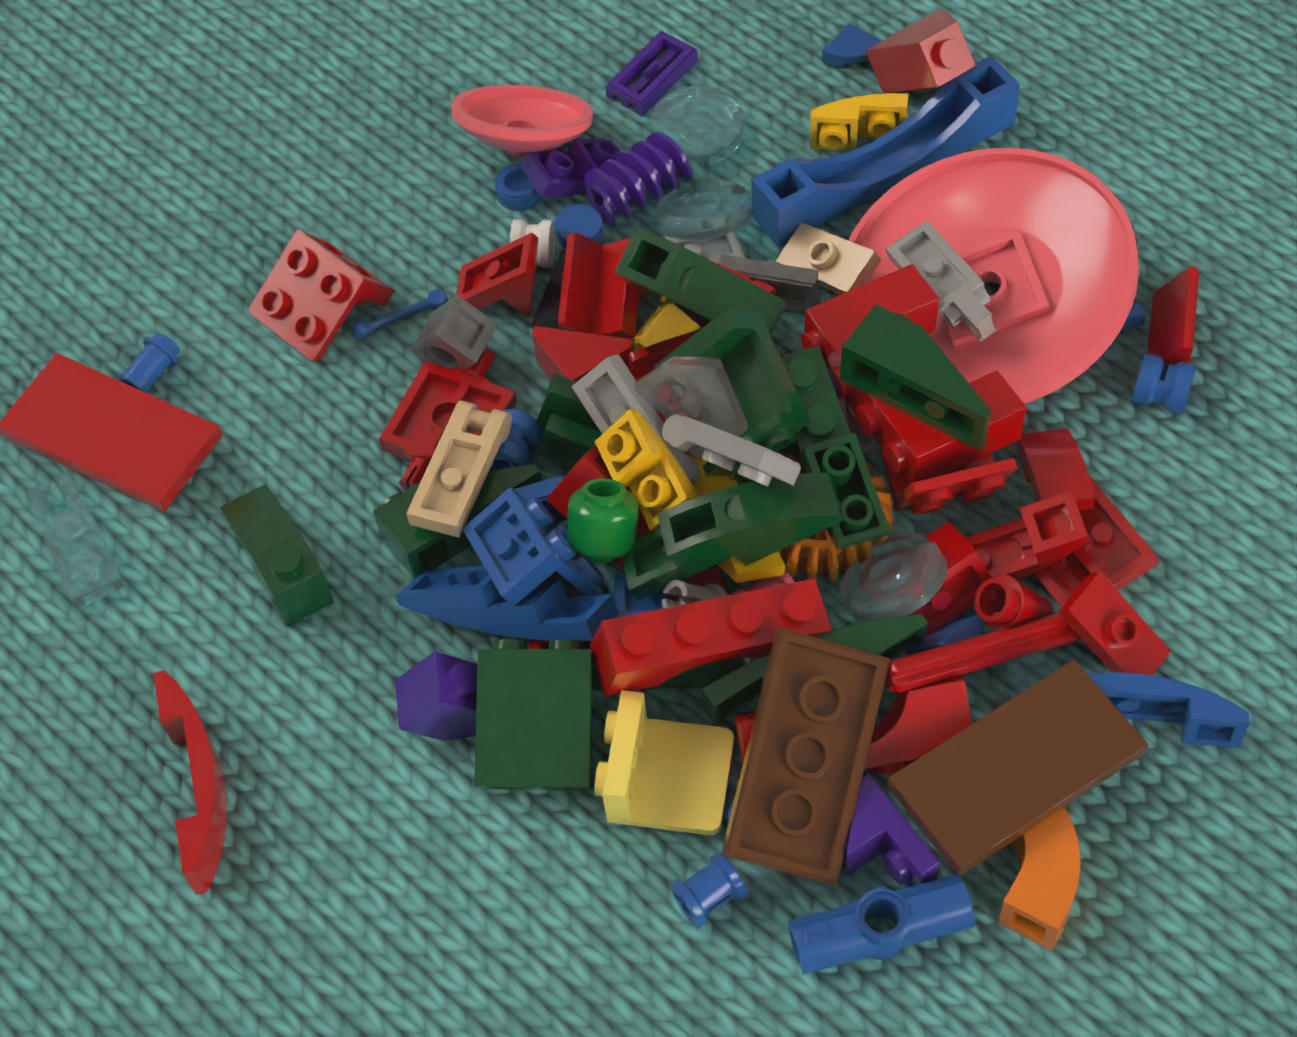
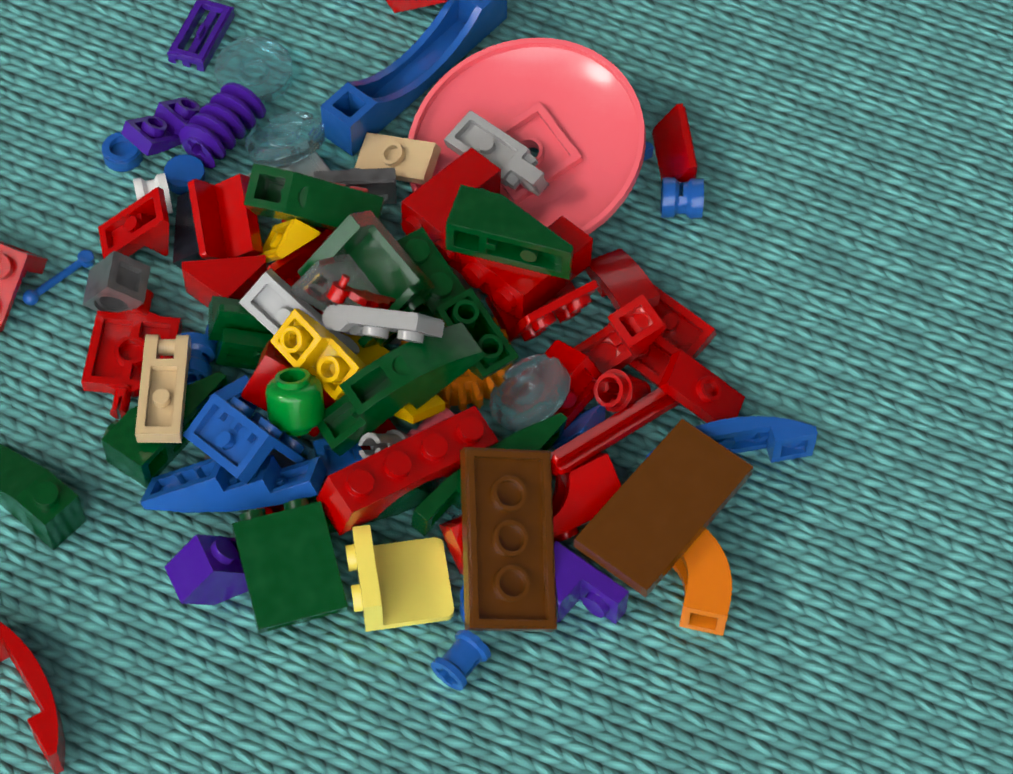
camera: 25 degrees left, 0 degrees up
(521, 117) = (109, 93): coral dish -> none
(690, 400) = (340, 291): none -> red piece
(867, 116) = (371, 45): yellow slope -> none
(917, 912) = (575, 663): blue piece -> none

